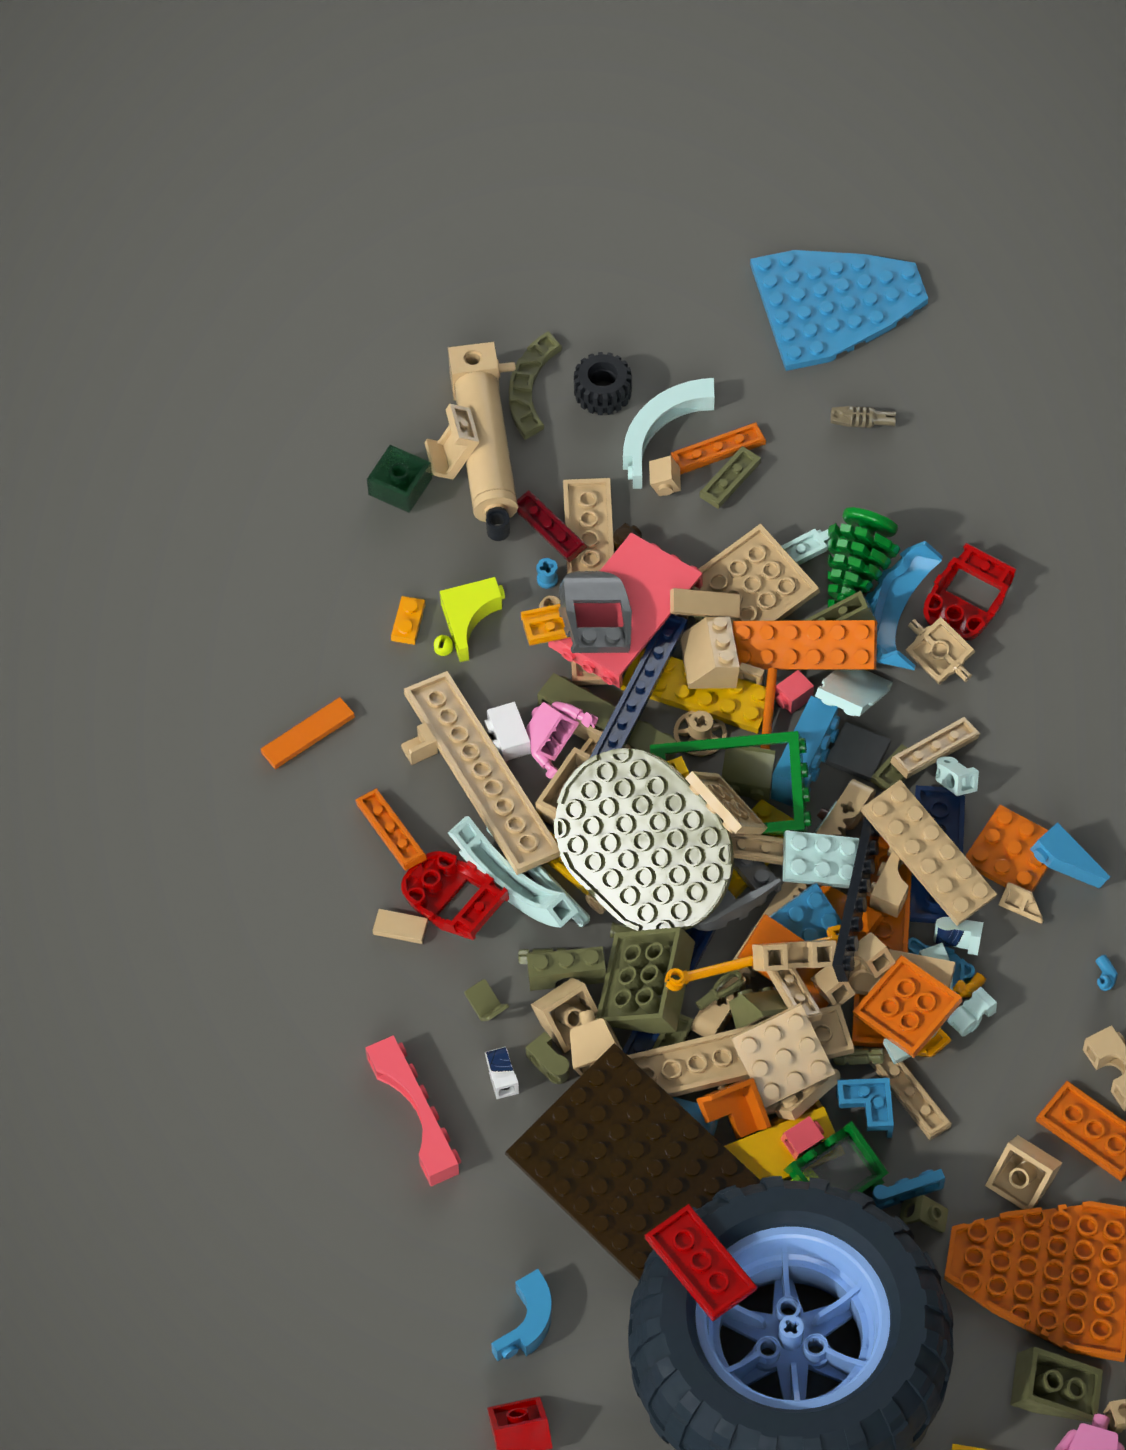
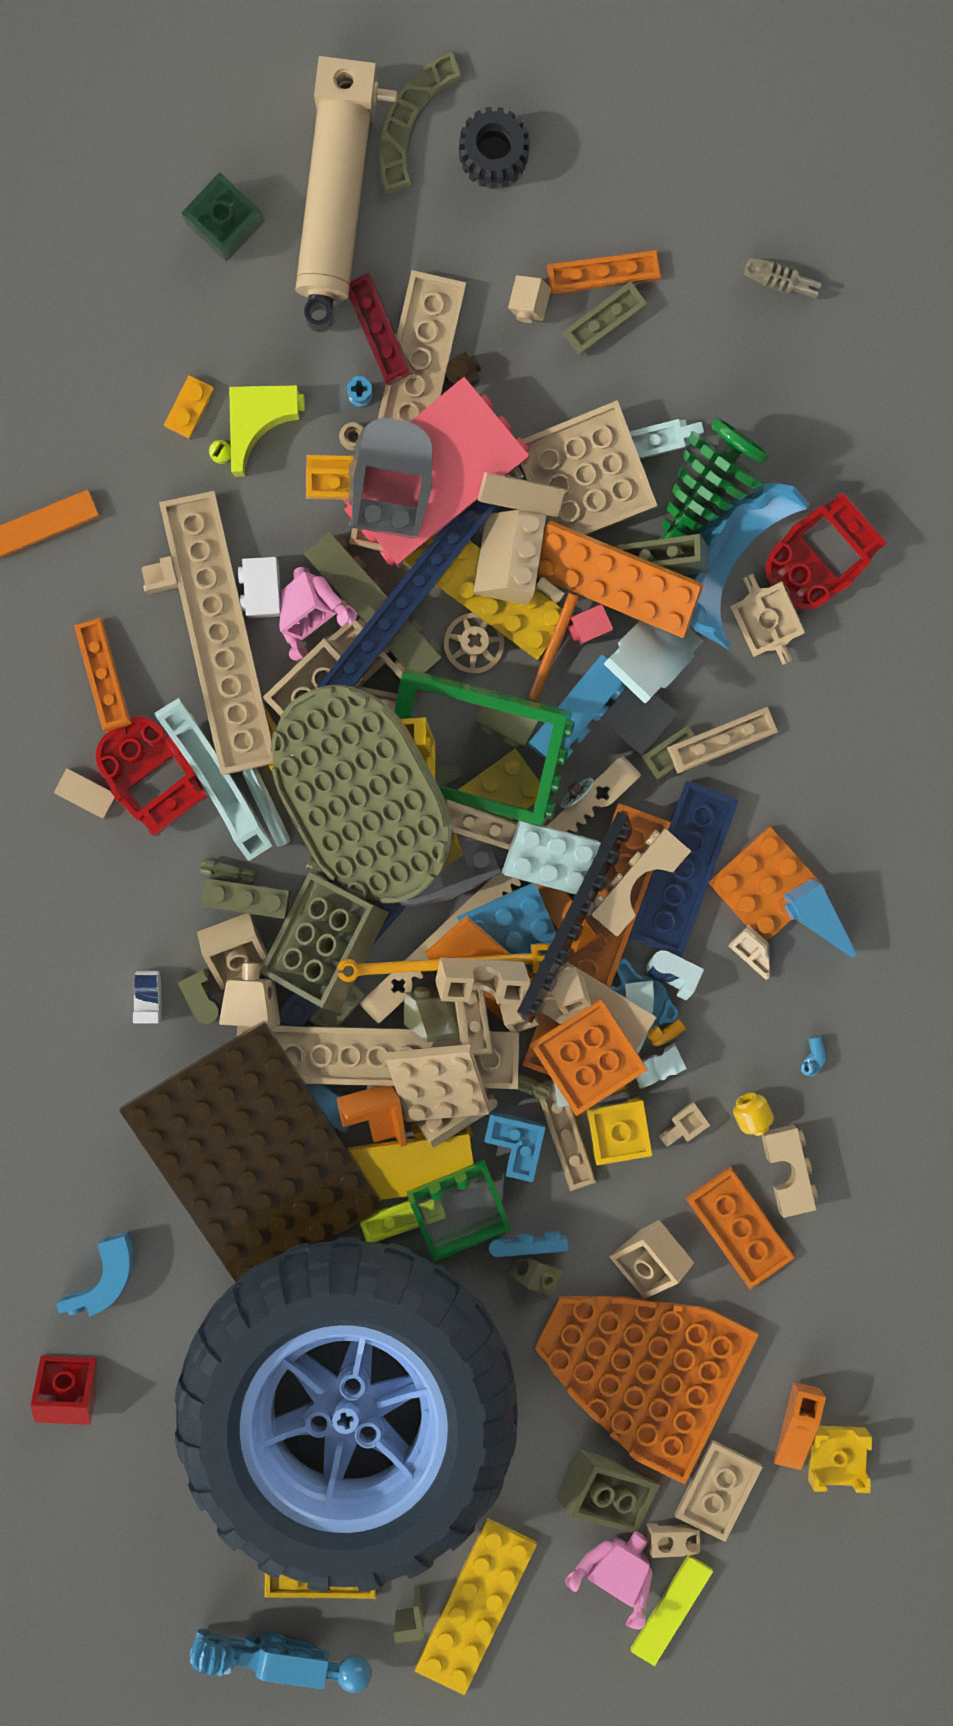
camera: 10 degrees right, 30 degrees up
(391, 1067) = (34, 960): coral arch -> none
(455, 444) = (295, 192): tan panel -> none
(484, 1000) = (152, 913): olive bracket -> none
(663, 408) = (567, 197): light aqua arch -> none
(700, 1262) = (260, 1360): red tile -> none
(714, 995) = (389, 982): olive piece -> none
(725, 802) = (459, 787): tan plate -> none
(803, 1137) = (435, 1168): coral brick -> none
(833, 301) = (800, 100): dark azure wing -> none
(928, 852) = (669, 882): tan plate -> none
(956, 776) = (731, 784): light aqua leg -> none
(956, 1070) = (619, 1131): none -> yellow panel
(1013, 1053) = (687, 1123): none -> tan plate
(1069, 1029) = (753, 1114): none -> yellow head

